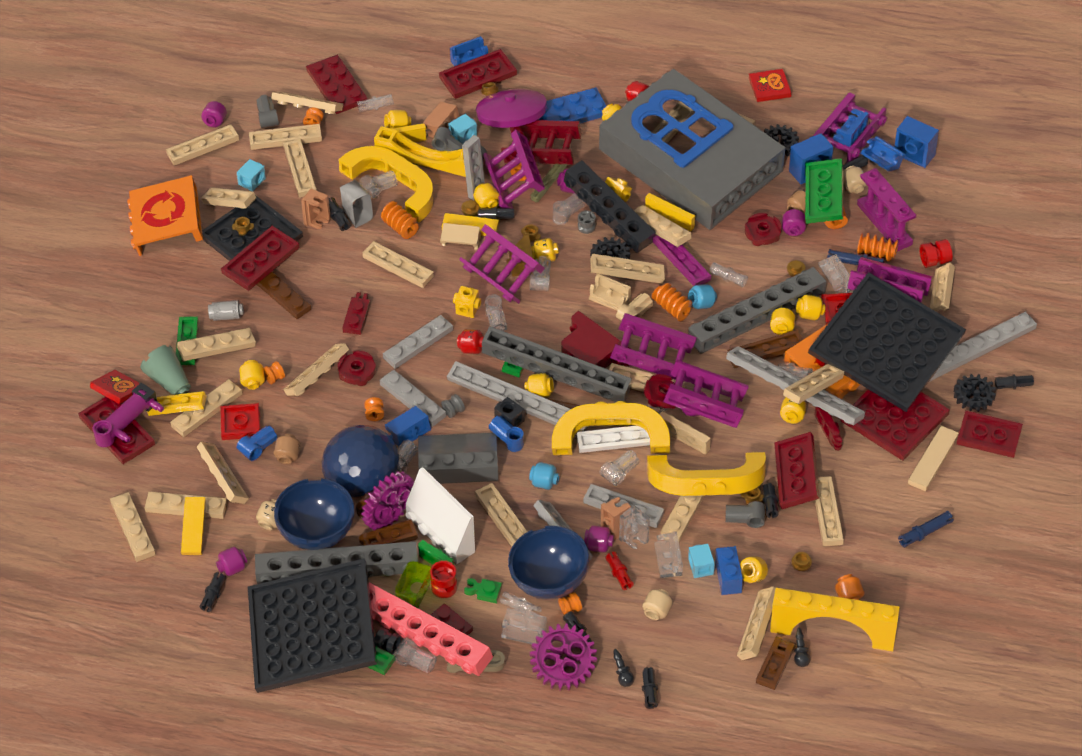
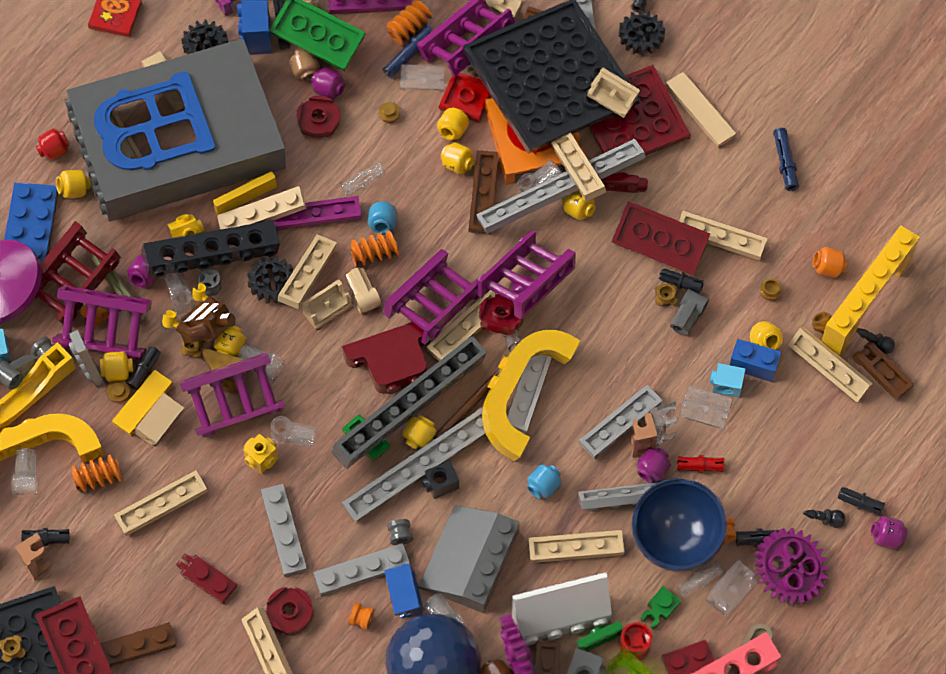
camera: 65 degrees left, 15 degrees up
(362, 210) = (50, 508): light grey piece -> none
(470, 341) = (319, 474): red head -> none
(507, 433) = (465, 492): blue piece -> none
(546, 223) = (204, 321): none -> reddish brown torso
(617, 470) = (571, 408): clear piece -> none
(631, 714) = (889, 532): none -> magenta head
(657, 604) = (765, 446): tan head -> none
(682, 515) = (649, 363): tan plate -> none
(686, 433) = (558, 318): tan plate -> none
(707, 482) = (649, 315): yellow arch -> none
(755, 310) = (423, 105): dark grey brick -> none
(895, 383) = (613, 92): none -> tan hinge
(989, 434) = (698, 45): dark red plate -> none

